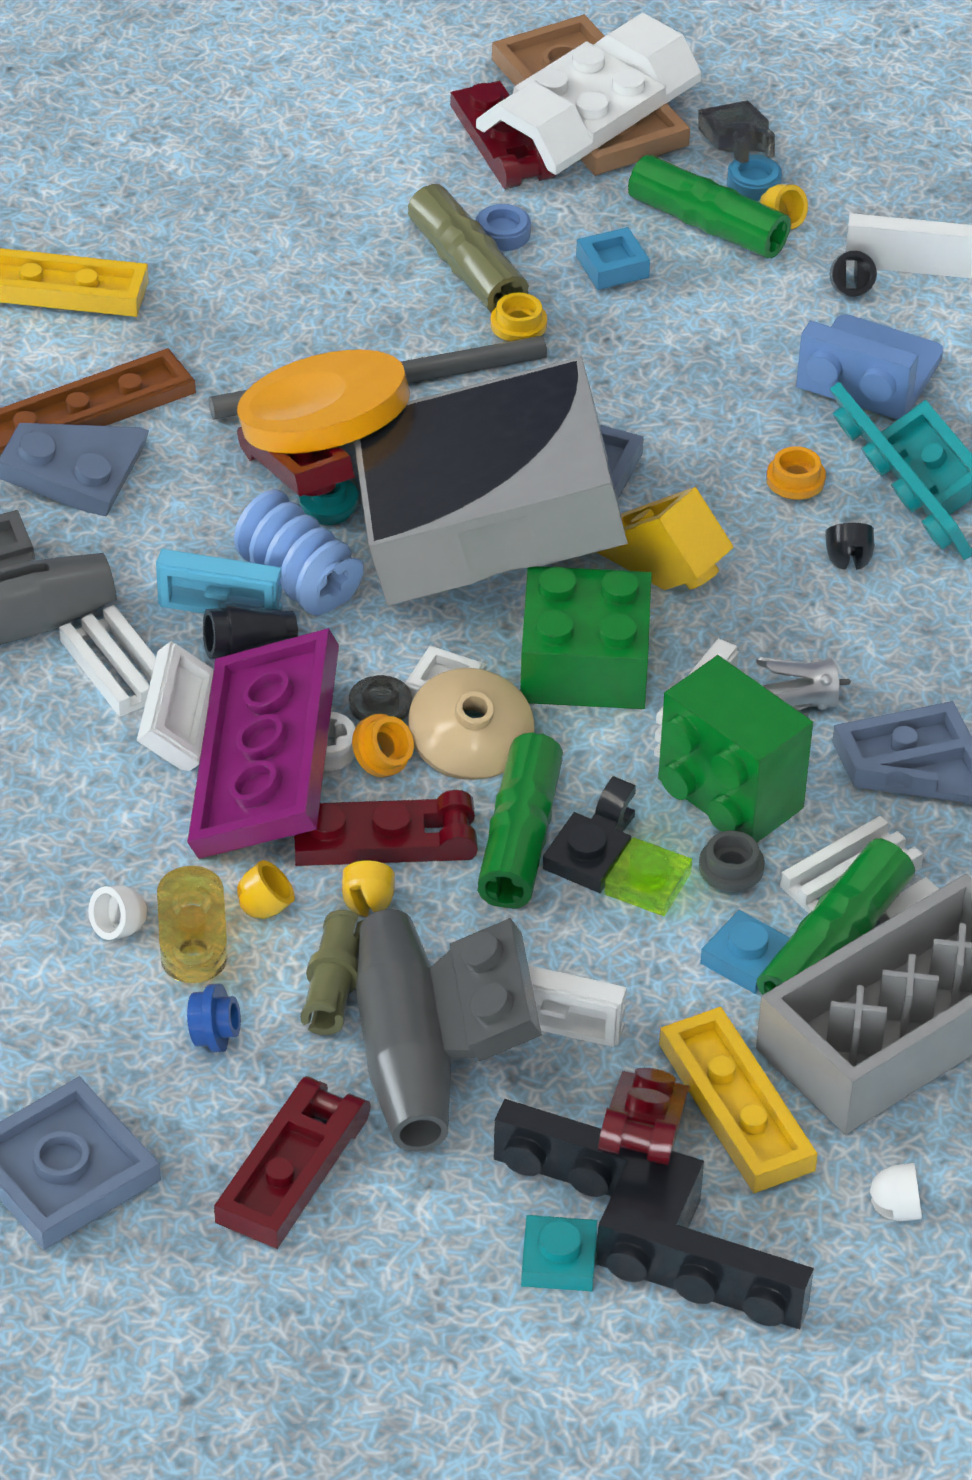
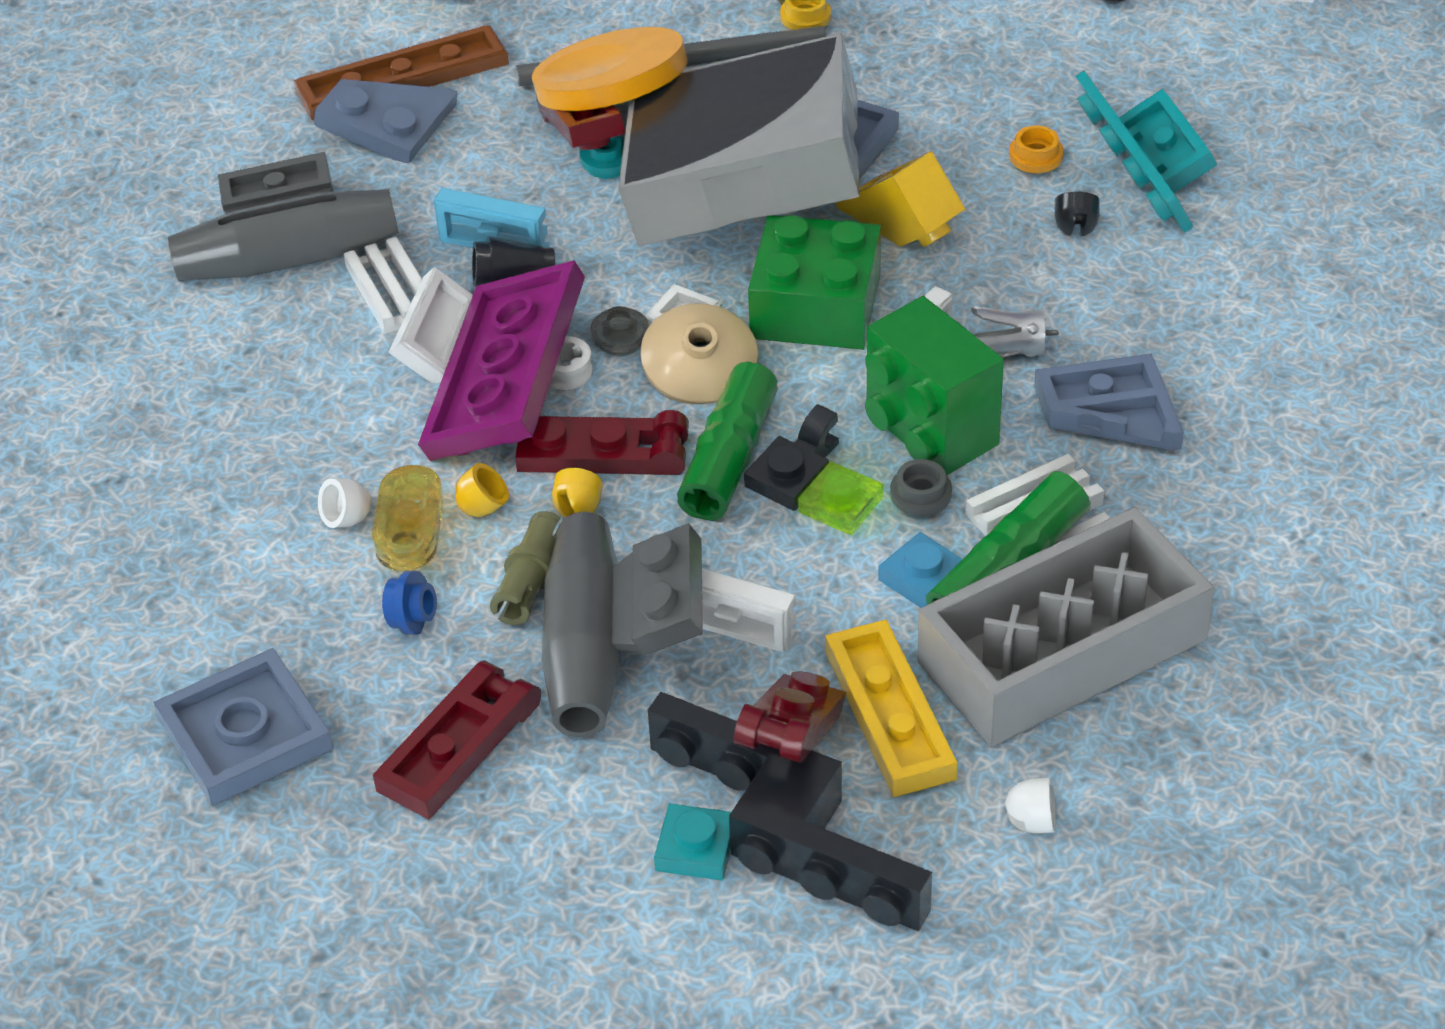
camera: 10 degrees right, 0 degrees up
(312, 562) = (575, 203): light blue piece -> none
(395, 742) = (624, 361): light orange plate -> none
(872, 362) = (1117, 57): medium blue bracket -> none

